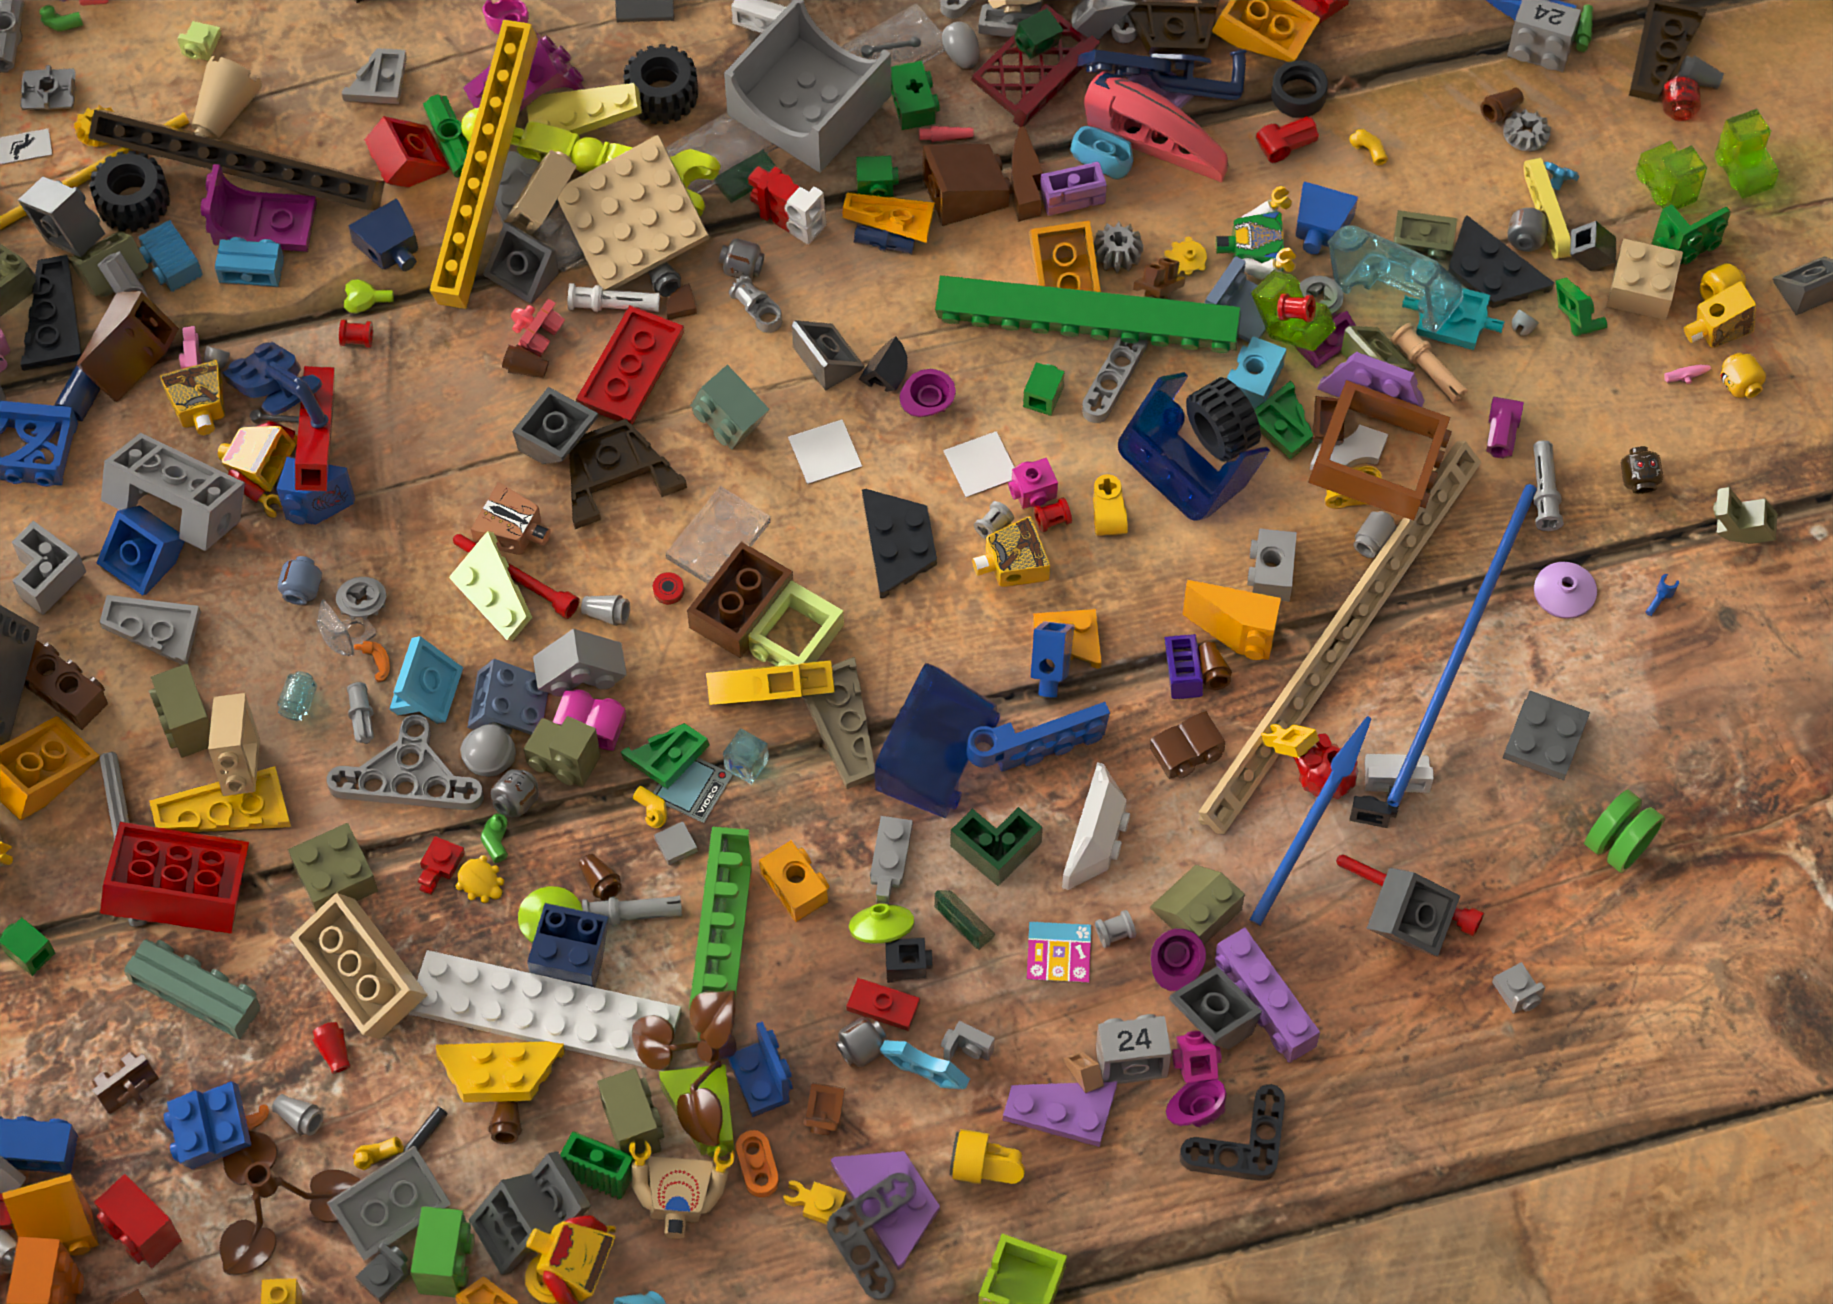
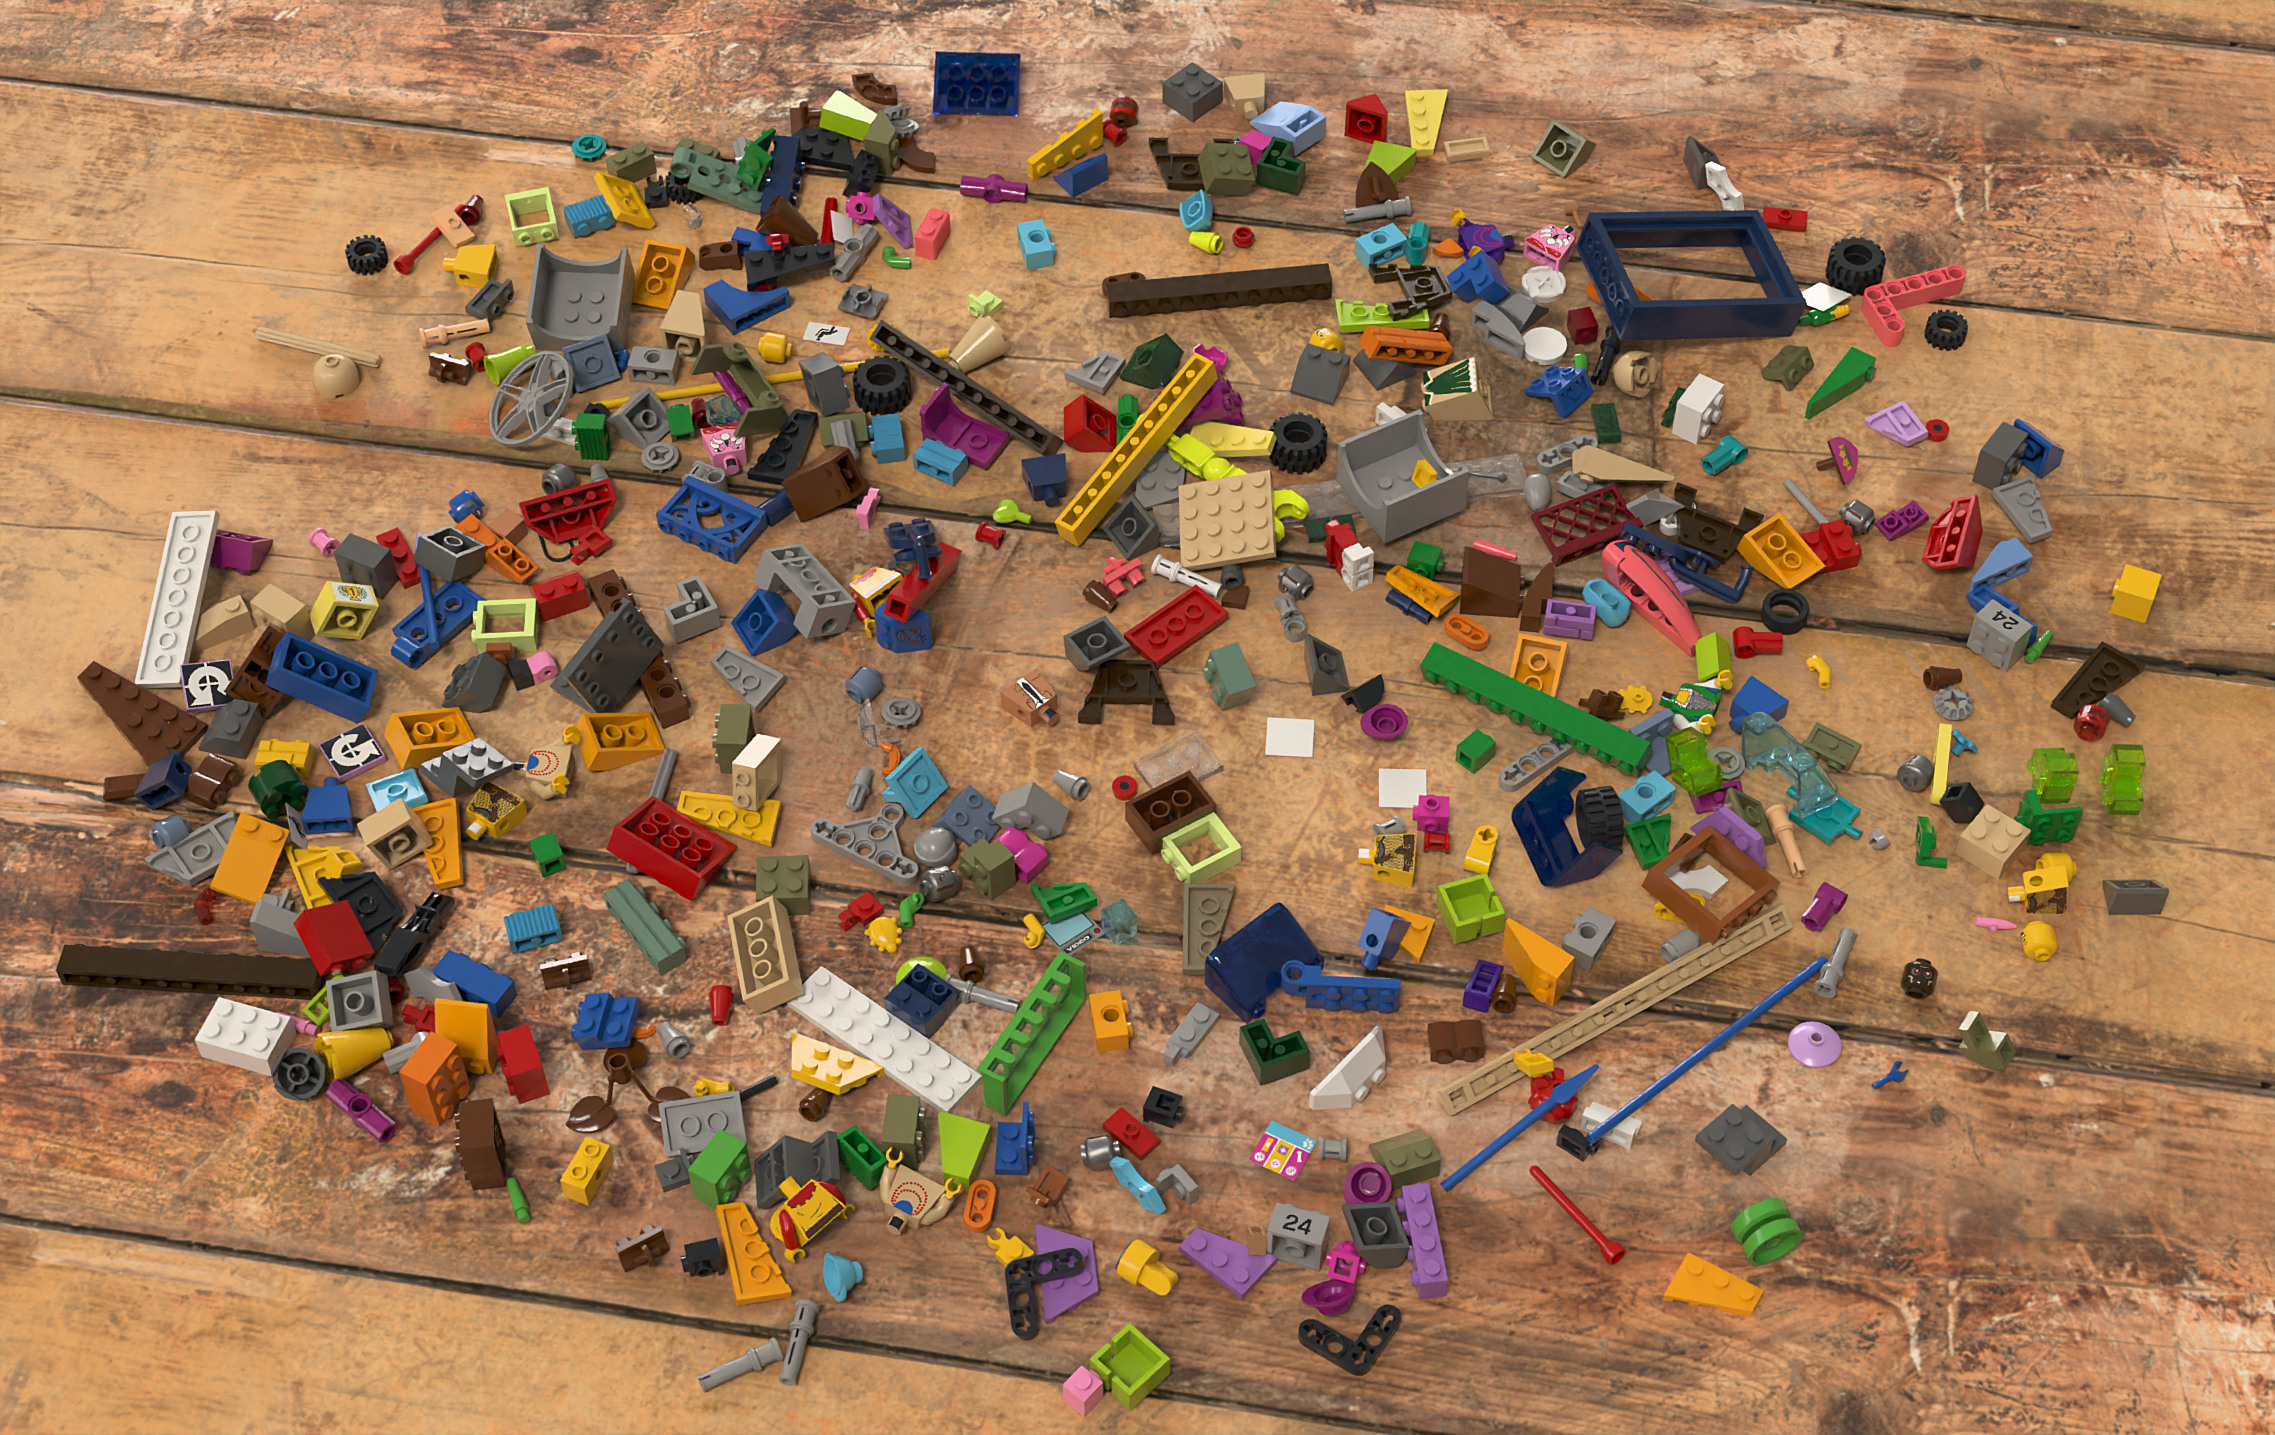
camera: 25 degrees right, 10 degrees down
(57, 1045) = (533, 928): none -> dark azure brick
(196, 395) = (858, 536): torso -> none
(216, 354) = (884, 516): light grey hinge -> none
(296, 695) = (820, 760): clear light blue brick -> none
(440, 43) = (1153, 363): none -> clear green slope
(490, 588) = (994, 739): yellowish green wing -> none
(541, 192) = (1165, 483): tan window -> none
(563, 602) = (1042, 769): red piece -> none
(675, 843) = (1037, 962): light grey tile -> none
(713, 1017) = (986, 1078): reddish brown plant -> none
(770, 682) = (1163, 877): yellow slope -> none
(836, 75) = (1424, 474): none -> yellow plate
(881, 923) = (1158, 1075): lime dish -> none
(898, 539) = (1312, 817): black wing -> none
(913, 95) = (1482, 513): green brick -> none
(962, 918) = (1222, 1097): clear green slope -> none
(964, 245) = (1468, 633): none -> orange plate
(1038, 33) = (1595, 501): dark green brick -> none
(1118, 247) = (1584, 673): light grey gear -> none
(1126, 586) = (1466, 908): none -> lime piece
(1250, 176) = (1712, 656): none -> lime brick
(1296, 307) = (1697, 758): red bush -> none
(1413, 911) = (1569, 1225): dark grey slope -> none
(1493, 268) = (1875, 791): black wing -> none
(1519, 988) = (1626, 1317): light grey bracket -> none
(1591, 915) = (1711, 1286): none -> light orange wing

